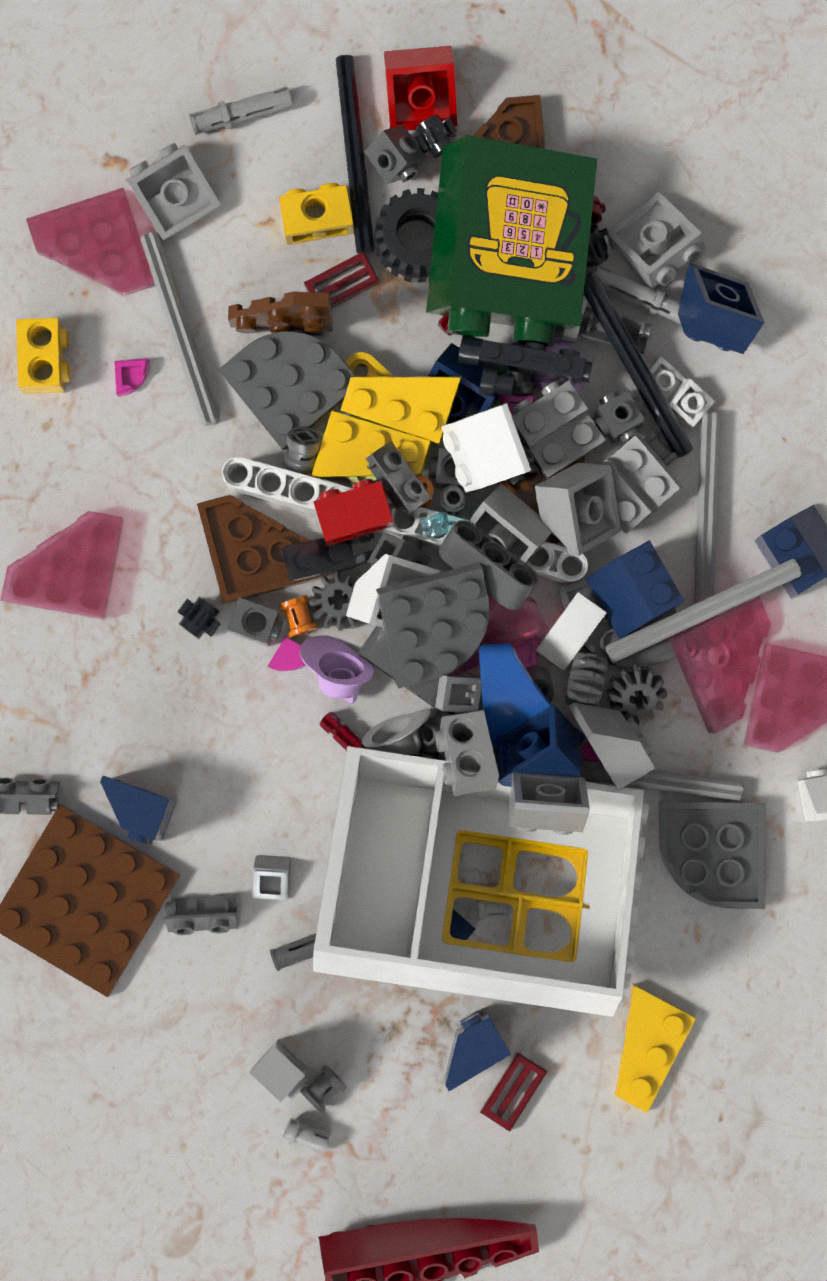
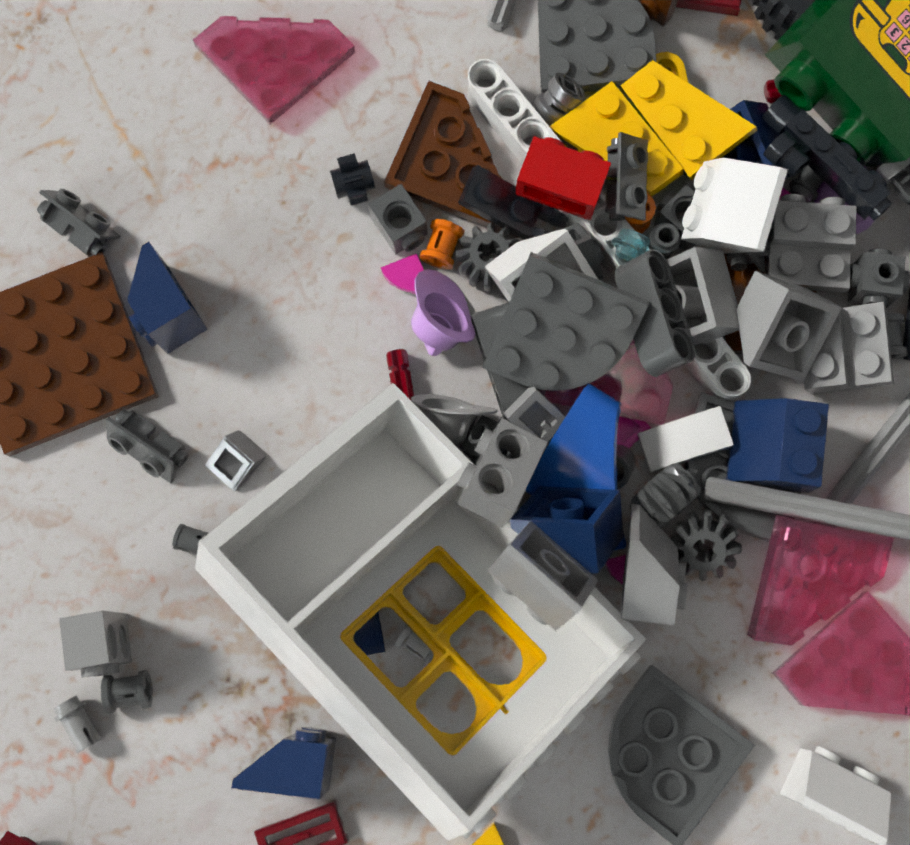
camera: 40 degrees right, 5 degrees down
(671, 782) = (676, 655): light grey axle -> none

